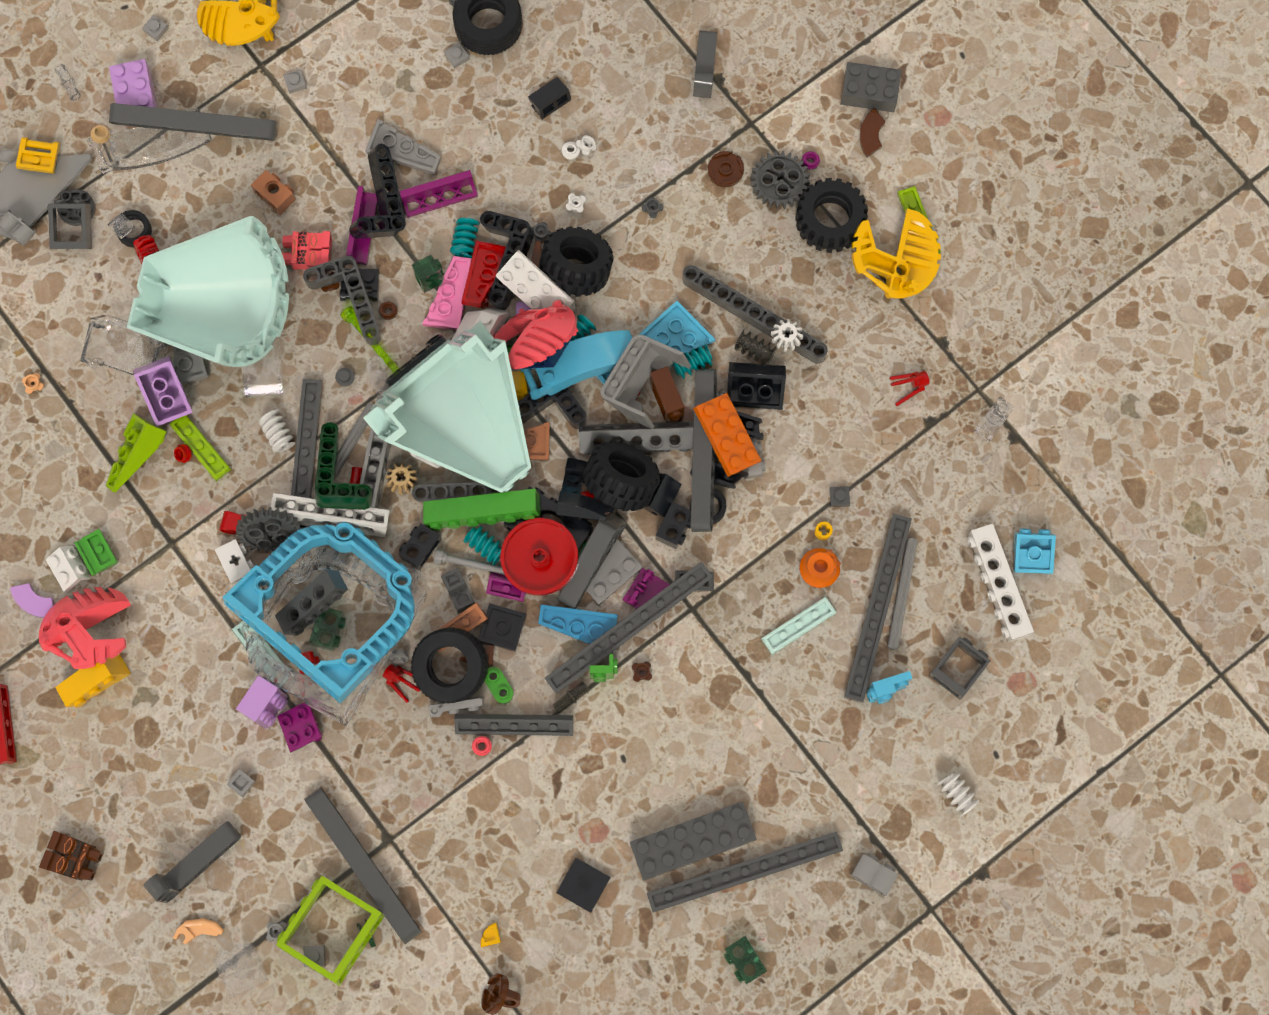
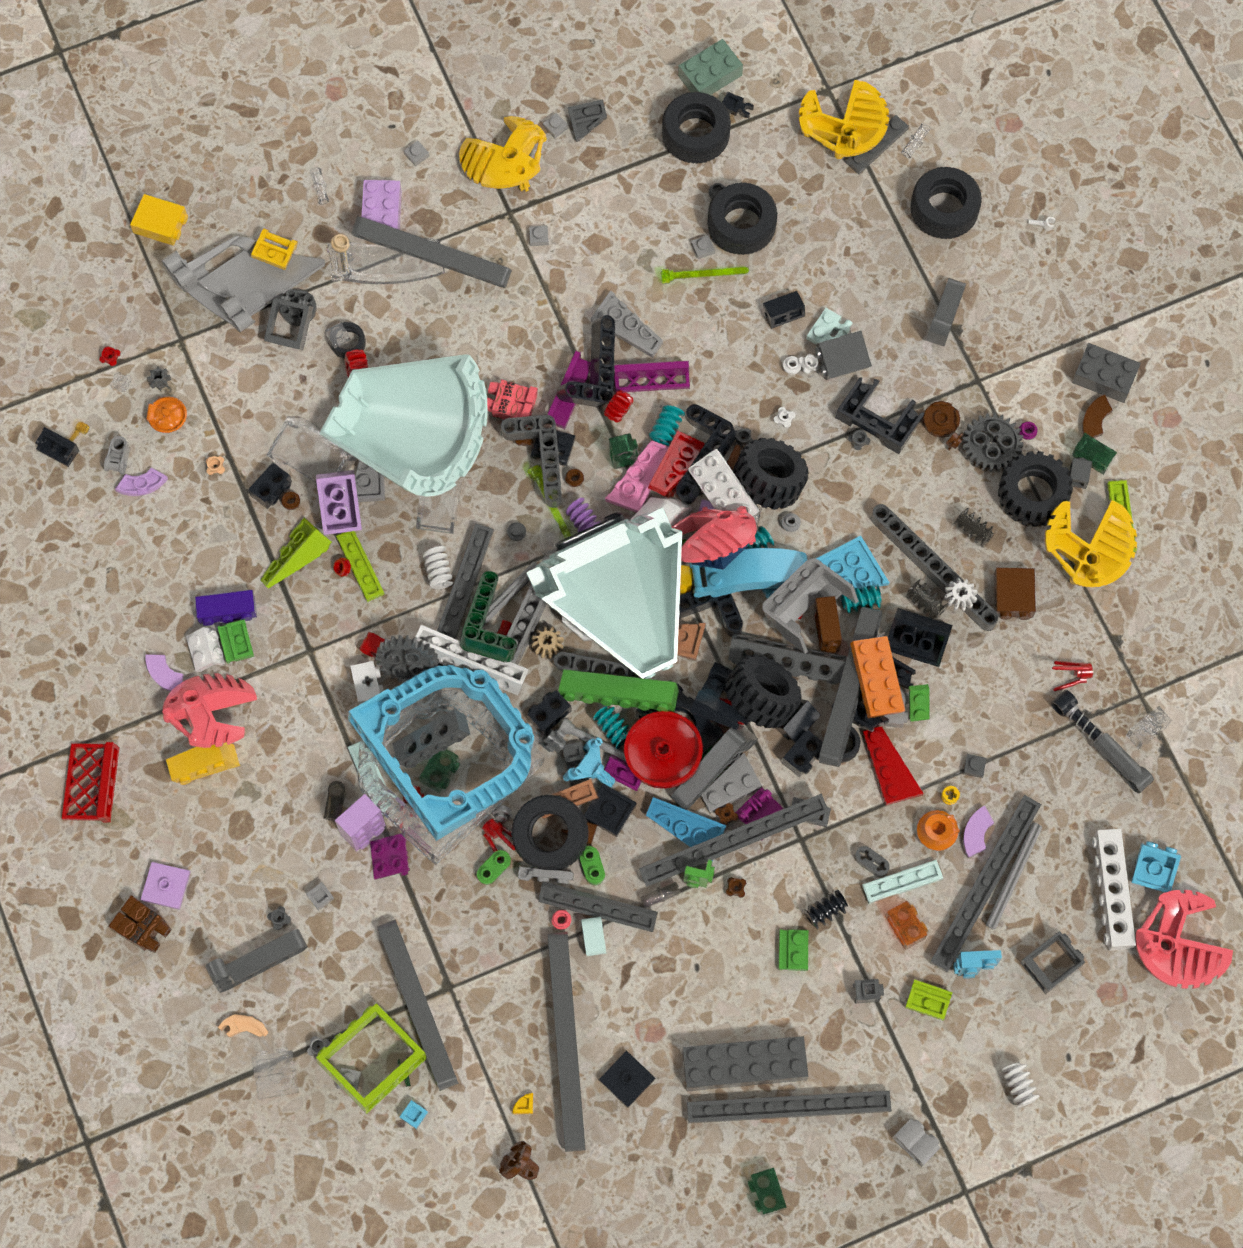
camera: 15 degrees right, 5 degrees down
(78, 521) = (226, 607): none -> dark purple brick
(86, 388) = (266, 483): none -> black brick
(86, 811) = (165, 885): none -> lavender plate
(112, 396) = (290, 495): none -> reddish brown plate
(206, 820) = (272, 916): none -> dark grey plate
(233, 688) = (334, 803): none -> clear smoke piece
(278, 201) = (493, 347): nougat brick -> none
(385, 974) = (413, 1114): none -> medium azure plate
(402, 346) = (580, 516): none -> medium lavender piece
(403, 711) = (494, 867): none -> bright green plate
(413, 230) = (618, 406): none -> red gear
(430, 91) = (668, 275): none -> clear neon green piece
(431, 573) = (554, 740): none -> dark grey gear
(473, 588) = (590, 765): none -> medium azure axle
(516, 864) = (566, 1042): none -> dark grey beam
(517, 754) = (593, 936): none -> light aqua beam
(592, 107) = (826, 325): none -> light aqua plate
(607, 309) = (791, 527): none -> light grey plate
(610, 603) = (727, 809): none -> reddish brown plate
(617, 129) = (843, 355): none -> dark grey brick
(685, 195) = (894, 435): none -> black wedge
(711, 718) = (793, 950): none -> bright green plate
(733, 671) = (826, 909): none -> black piece
(743, 187) = (954, 441): none -> reddish brown plate
(762, 522) = (891, 772): none -> red wing
(763, 617) = (869, 865): none -> dark grey beam
(772, 449) = (919, 702): none -> bright green plate
(783, 266) = (976, 529): none -> clear smoke piece
(792, 740) = (868, 991): none -> dark grey window
(808, 671) = (901, 927): none -> clear orange brick
(836, 320) = (1014, 593): none -> reddish brown brick
(851, 734) = (928, 1000): none -> lime plate
(855, 560) = (975, 831): none -> lavender tile
(870, 188) = (1080, 472): none -> dark grey brick
(878, 167) = (1094, 451): none -> clear green brick
(993, 468) = (1136, 776): none -> piece
(1084, 634) = (1186, 960): none -> coral piece

